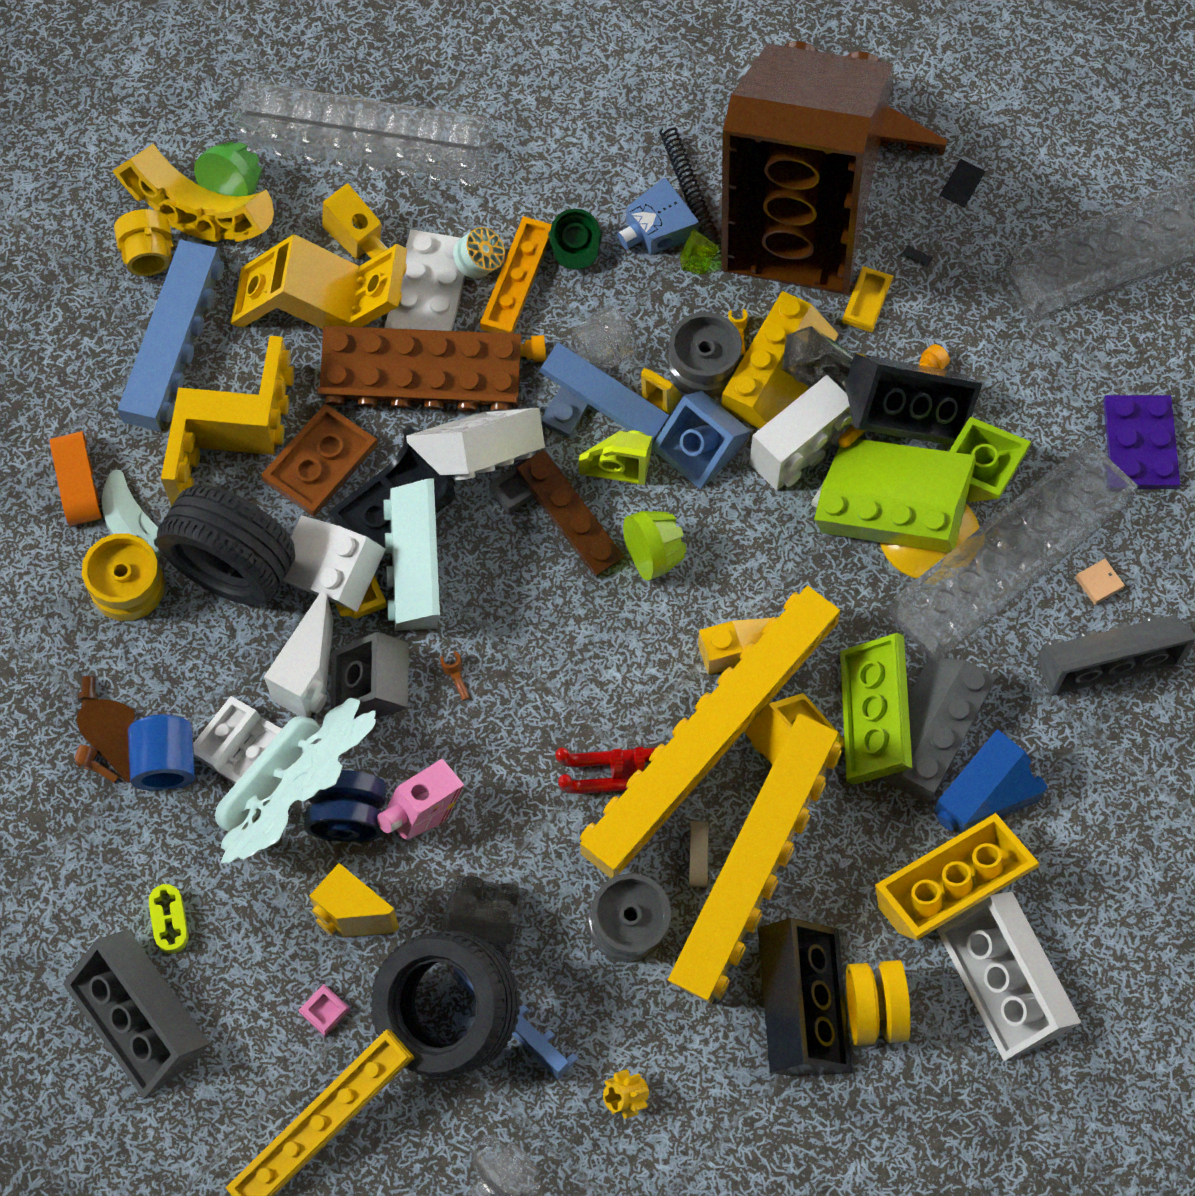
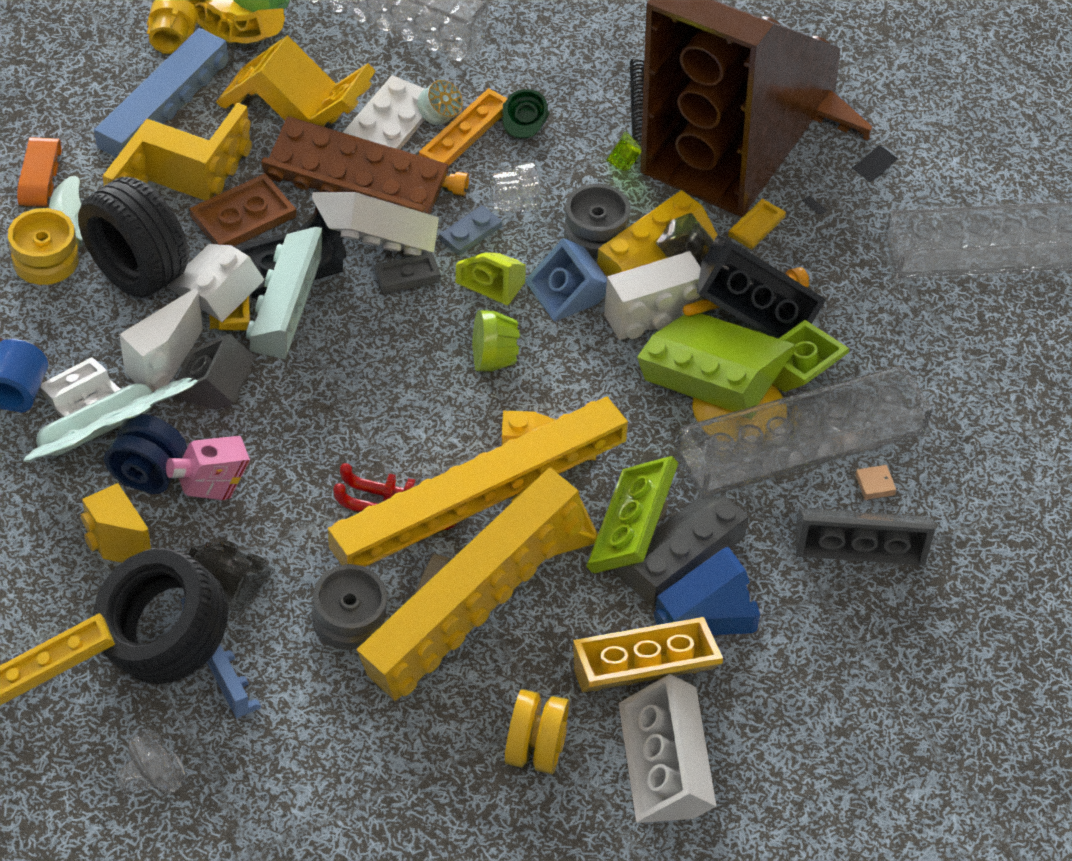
camera: 15 degrees right, 15 degrees down
(324, 1010) = (61, 605): bright pink tile -> none
(337, 219) = (338, 60): yellow torso -> none
(455, 673) = (285, 392): dark orange hand -> none
(569, 513) = (432, 304): reddish brown plate -> none
(602, 392) = (497, 223): medium blue tile -> none
(625, 1094) = (287, 740): yellow gear -> none
(658, 220) = (599, 119): medium blue torso -> none
(659, 391) = (545, 231): yellow slope -> none
(740, 324) = (637, 212): yellow hand -> none
(804, 999) = (475, 716): black slope -> none
(1143, 439) = (957, 388): dark purple plate -> none

